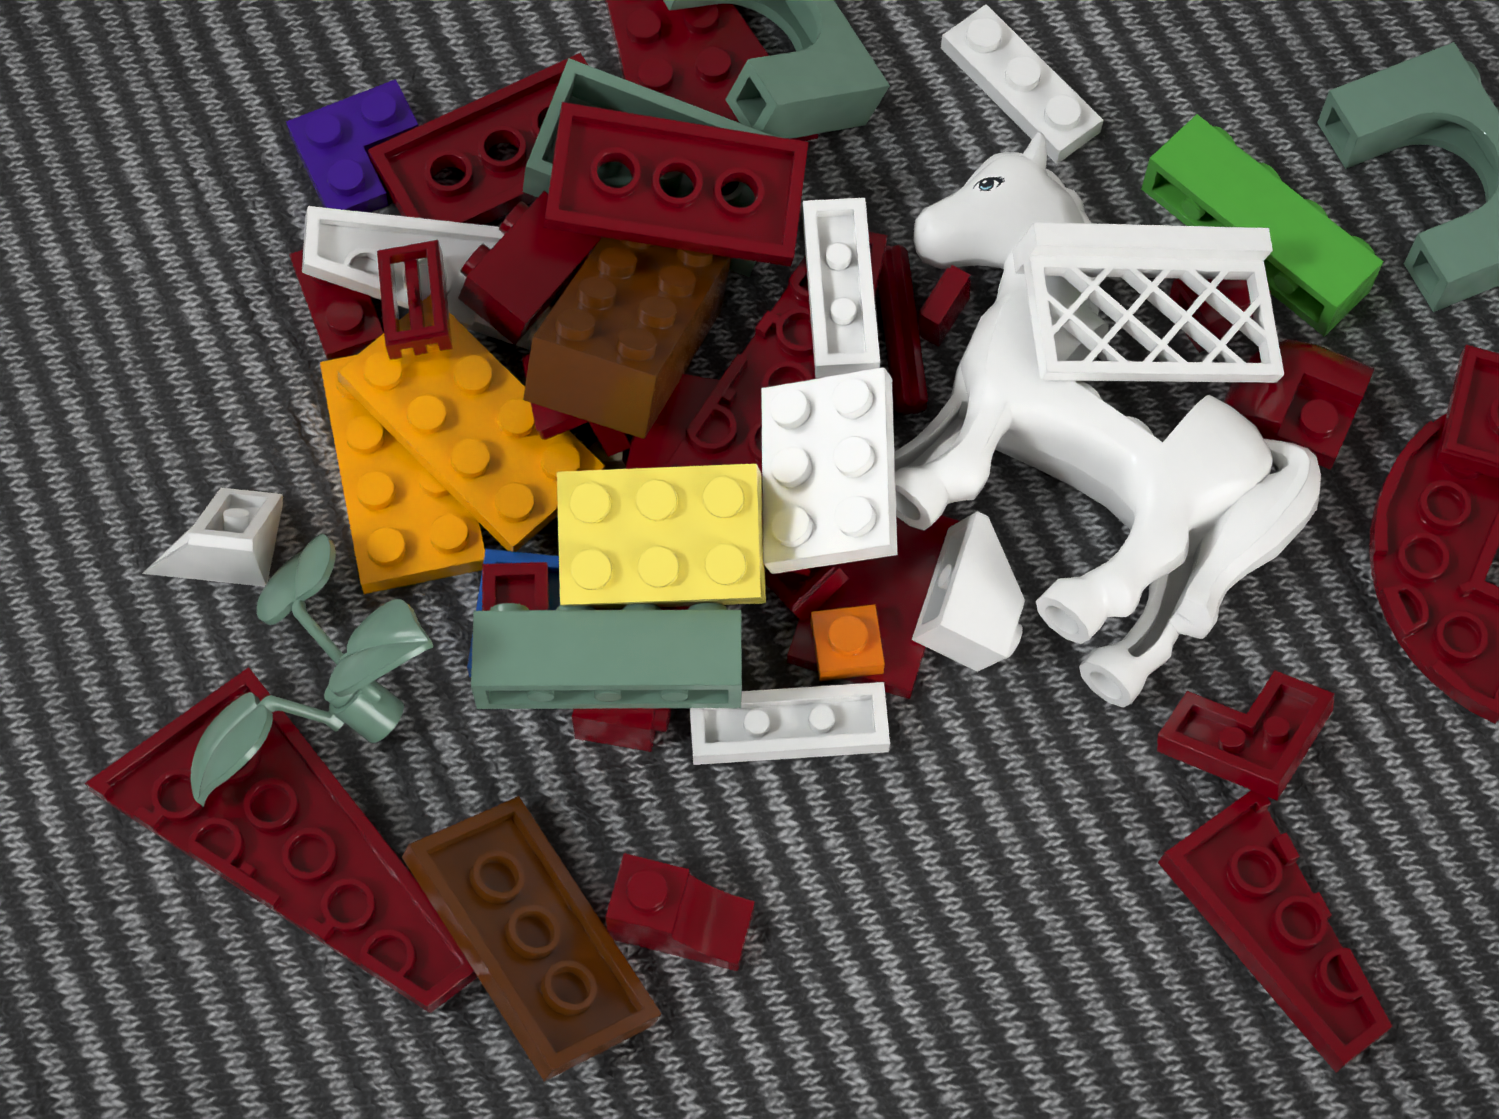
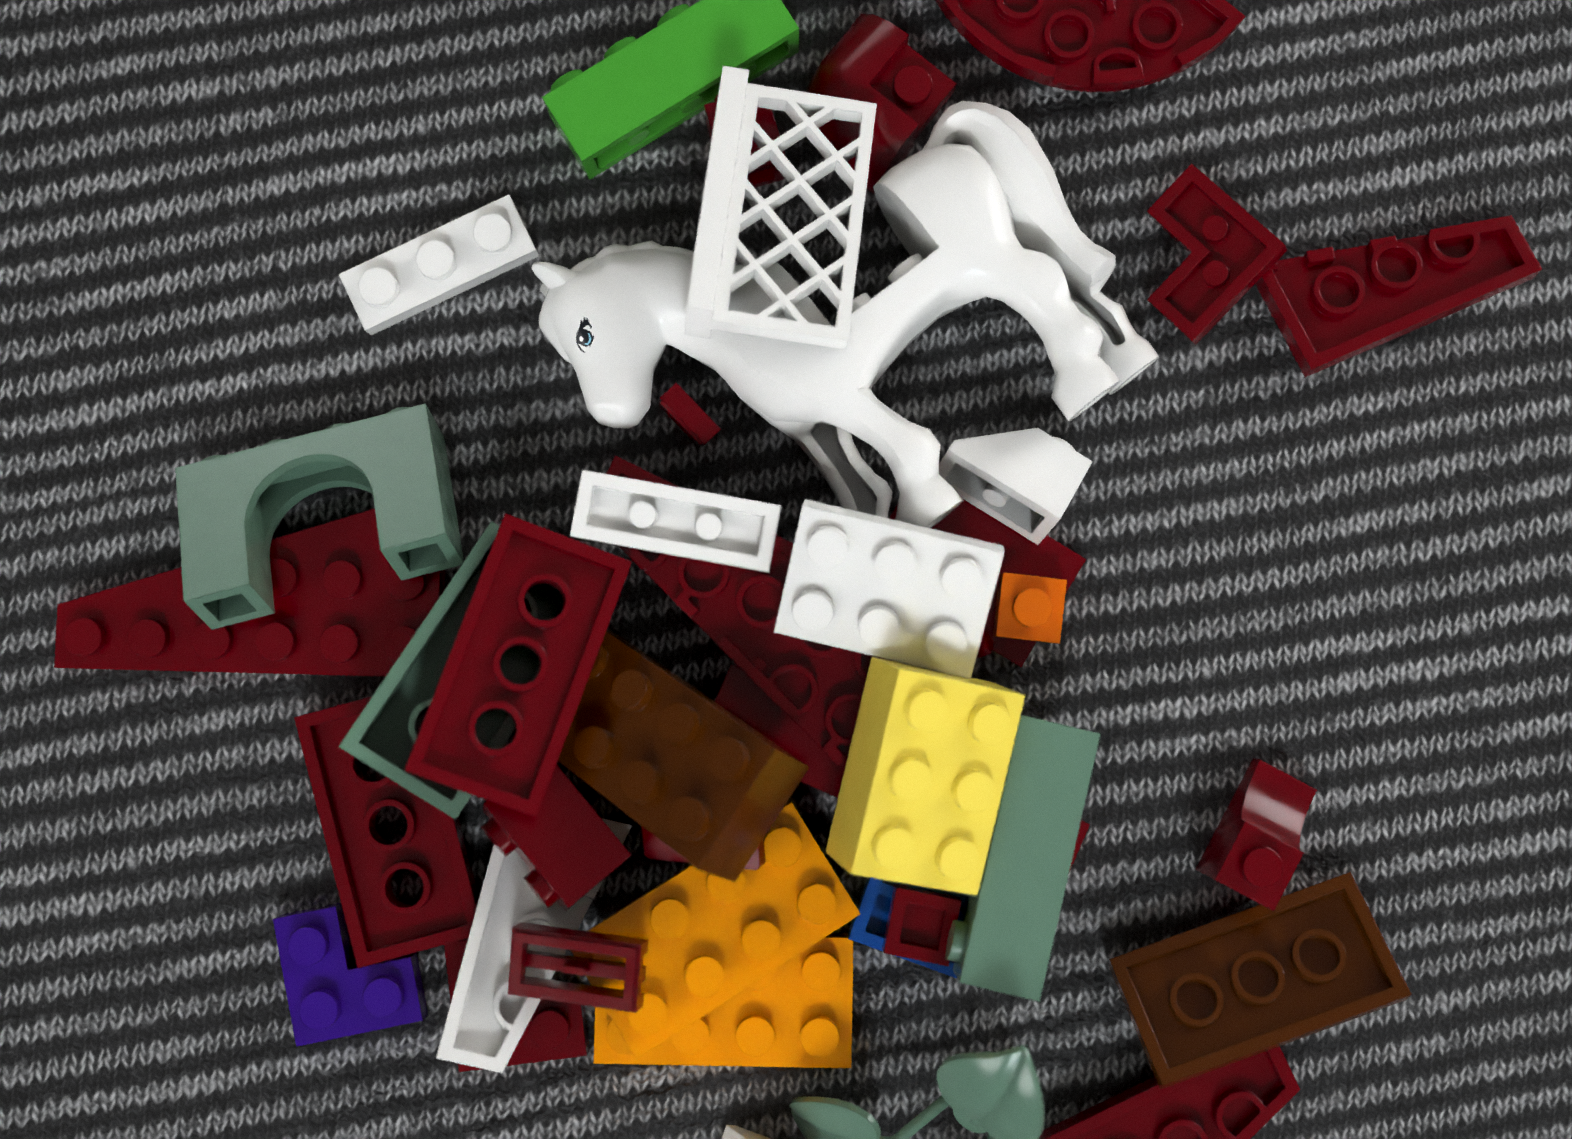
camera: 75 degrees left, 20 degrees up
(793, 724) = (1098, 668): white plate -> none
(902, 332) = (700, 464): dark red axle -> none

